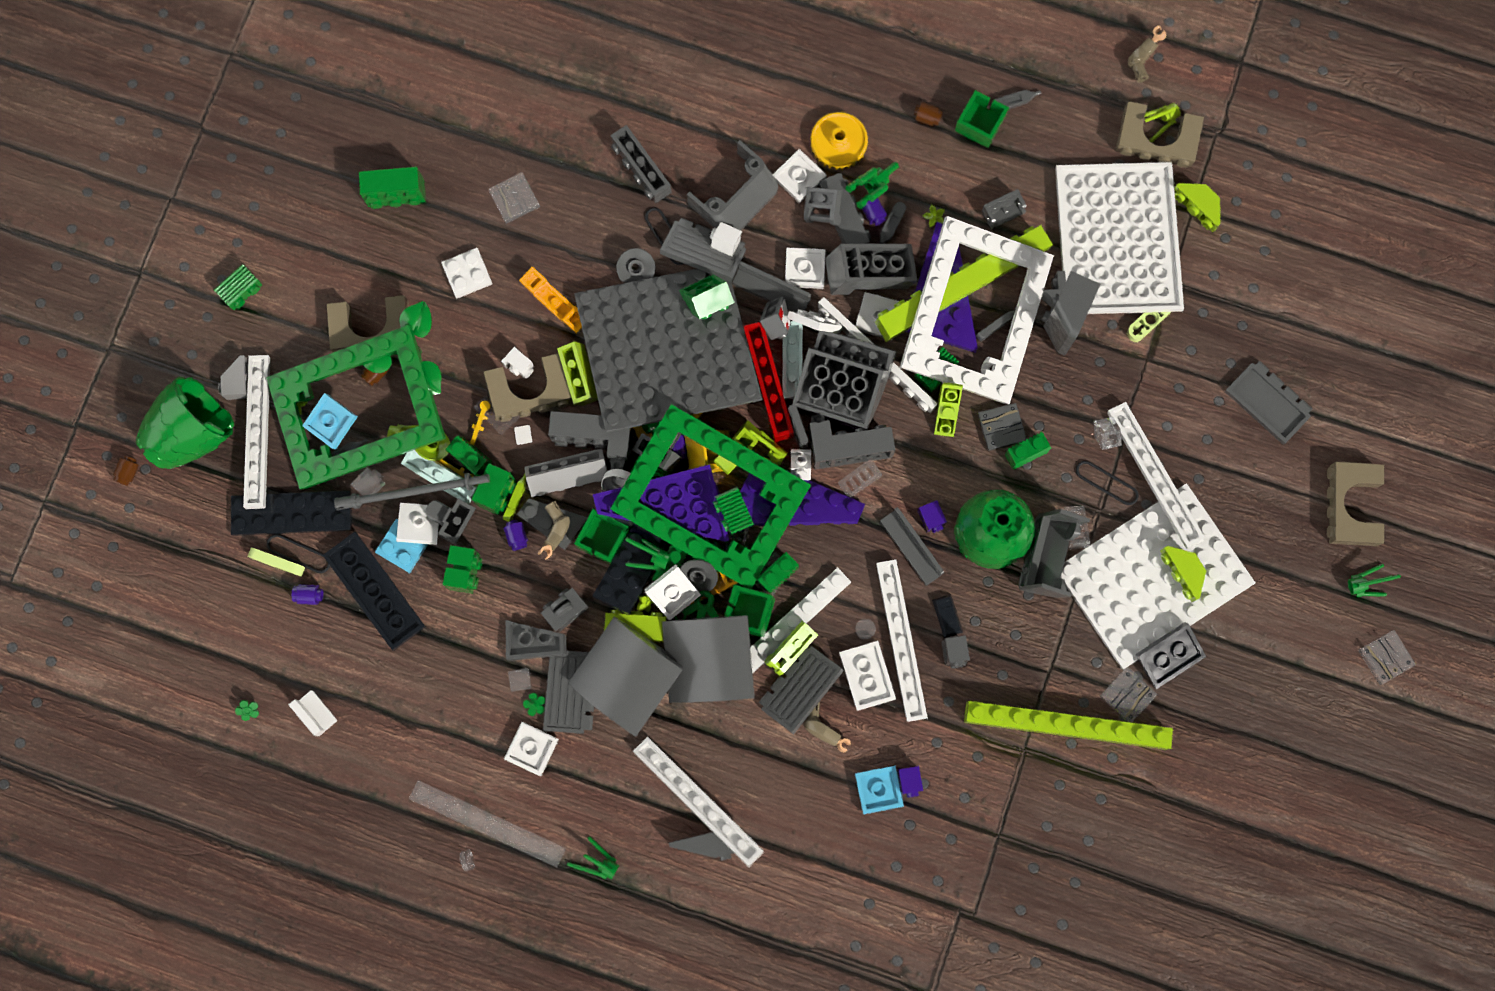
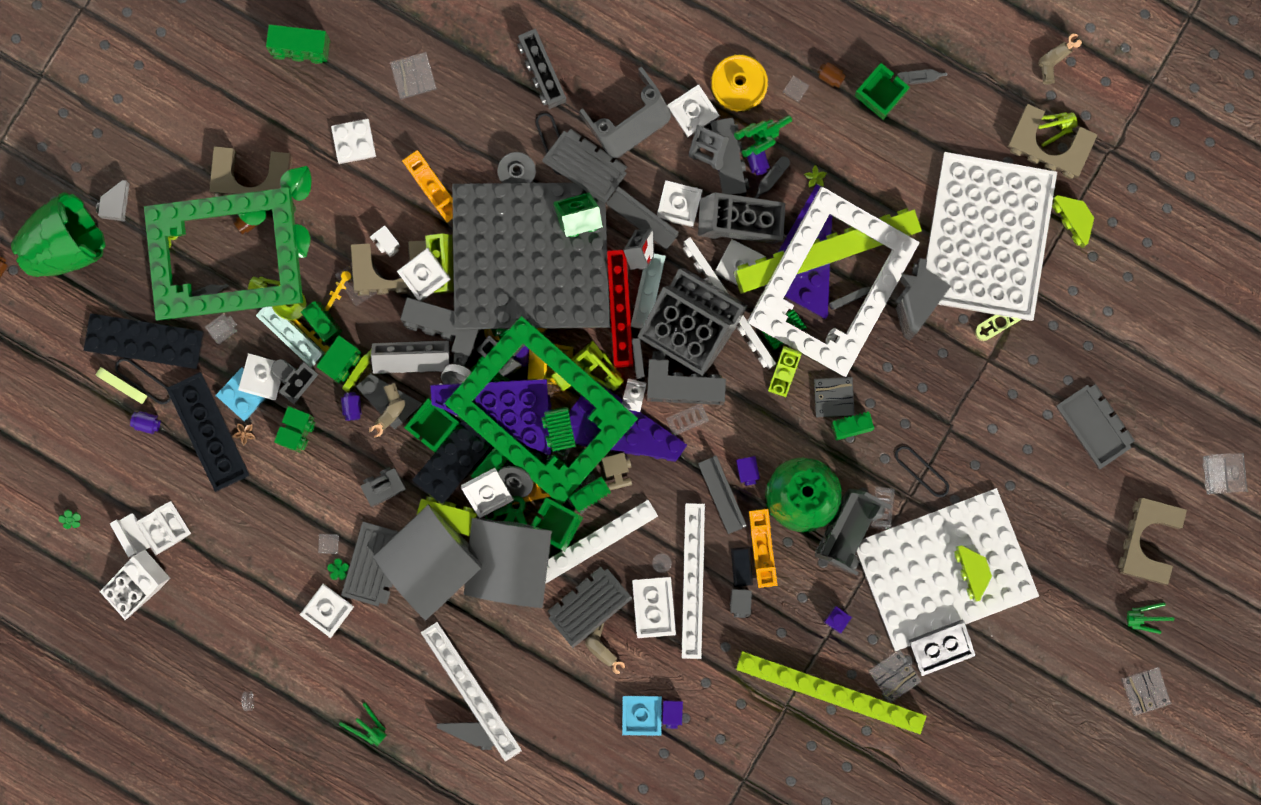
camera: 10 degrees right, 5 degrees up
(238, 287) = (132, 111): green brick -> none
(256, 432) = (125, 257): white plate -> none
(326, 762) = (134, 584): none -> white slope
(330, 421) = (196, 263): medium azure plate -> none
(345, 699) = (163, 528): none -> white slope
(355, 500) = (207, 344): dark grey bar -> none
(412, 585) = (244, 433): none -> medium nougat plant
(487, 823) = (273, 671): clear plate -> none
(523, 434) = (377, 310): white sticker -> none
(531, 642) = (347, 512): dark grey wing -> none
(563, 386) = (423, 275): none -> white plate
(645, 603) = (459, 497): lime plant -> none
(660, 557) = (482, 458): green plant -> none
(725, 238) = (608, 160): white brick -> none
(791, 648) = (588, 567): plate -> none
(798, 540) = (616, 466): none -> dark tan brick
(814, 321) = (675, 260): white plate -> none
(895, 135) = (796, 89): none -> clear tile
(964, 592) = (762, 548): none -> light orange slope
(1004, 209) = (884, 185): dark grey hinge -> none
(1057, 649) = (837, 620): none -> dark purple brick
(1107, 433) = (932, 425): clear brick -> none
(1156, 476) = (968, 474): white plate -> none
(1410, 422) = (1225, 473): none -> clear slope

